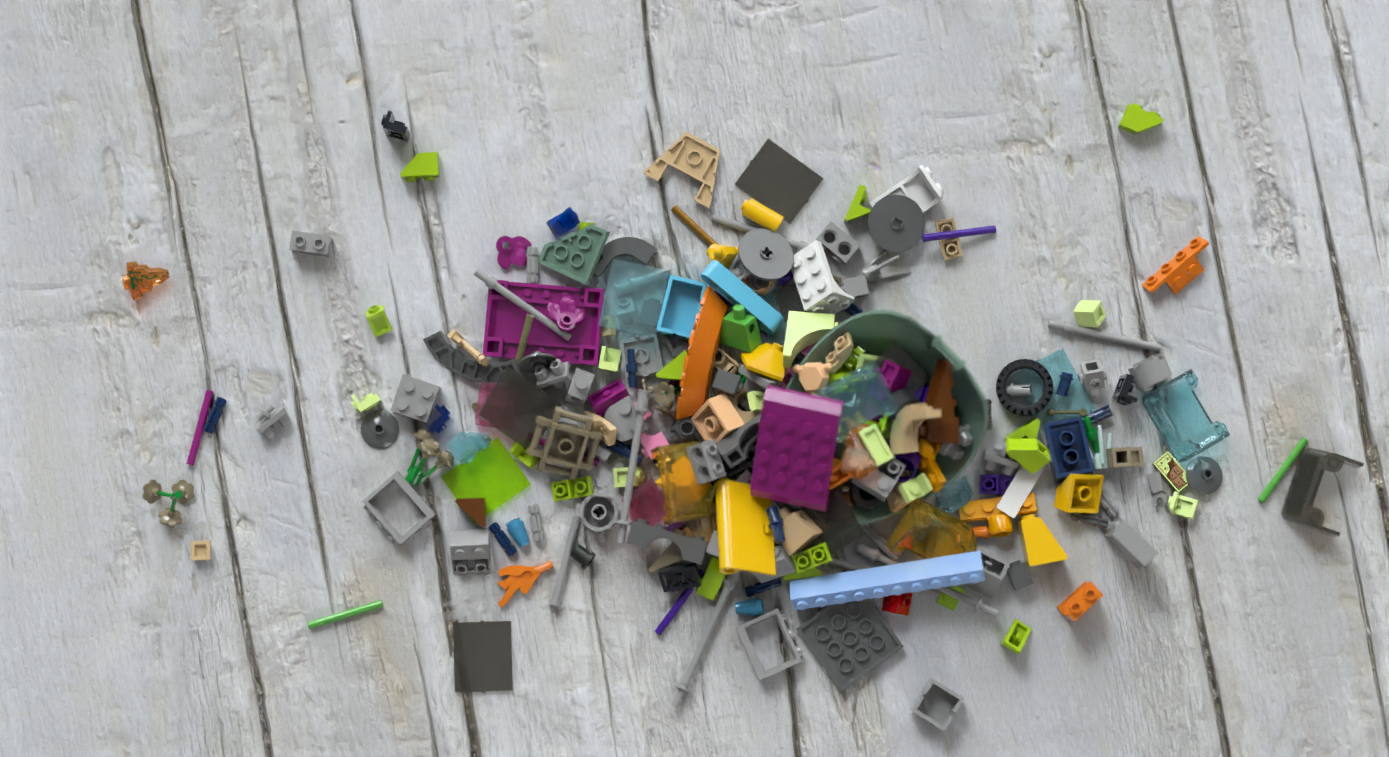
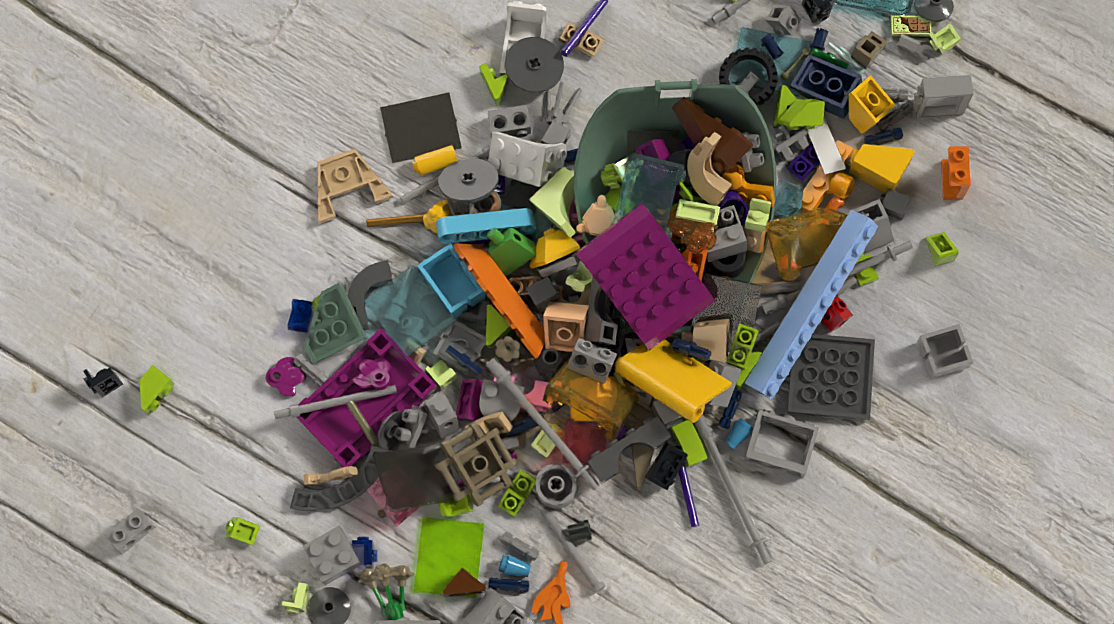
camera: 45 degrees left, 10 degrees down
(467, 444) = (406, 545): clear light blue slope -> none
(842, 351) = (598, 176): tan slope -> none
(1065, 524) = (884, 137): none -> dark blue axle

